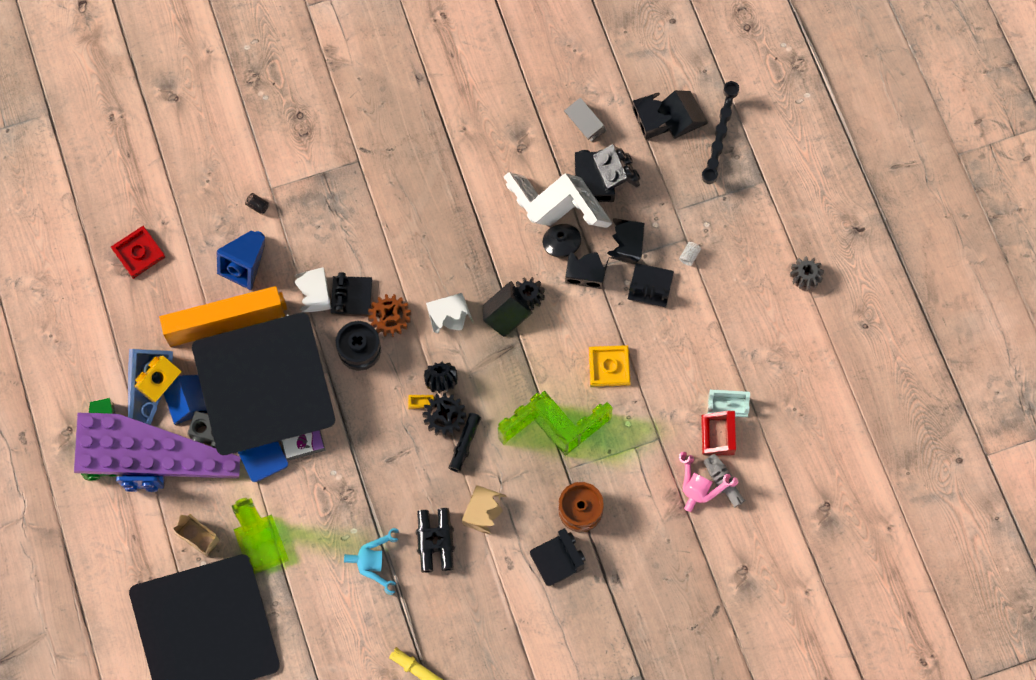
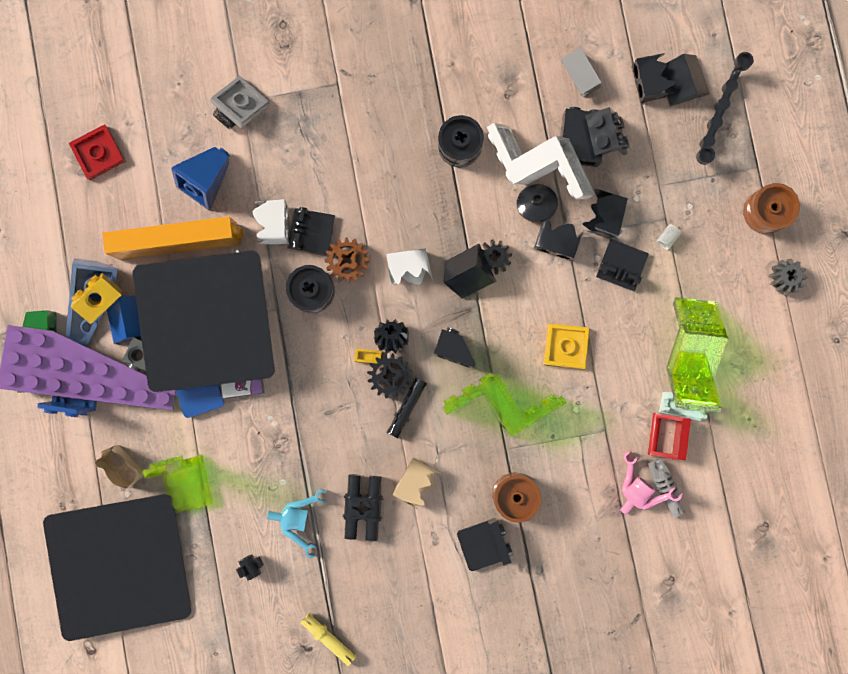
camera: 10 degrees right, 15 degrees up
(269, 188) = (240, 101): none -> light grey tile
(333, 611) = (249, 567): none -> black gear
(481, 194) = (451, 134): none -> black wheel
(501, 379) = (453, 348): none -> black slope
(729, 351) = (696, 355): none -> clear neon green bracket
(779, 214) = (771, 208): none -> dark orange wheel

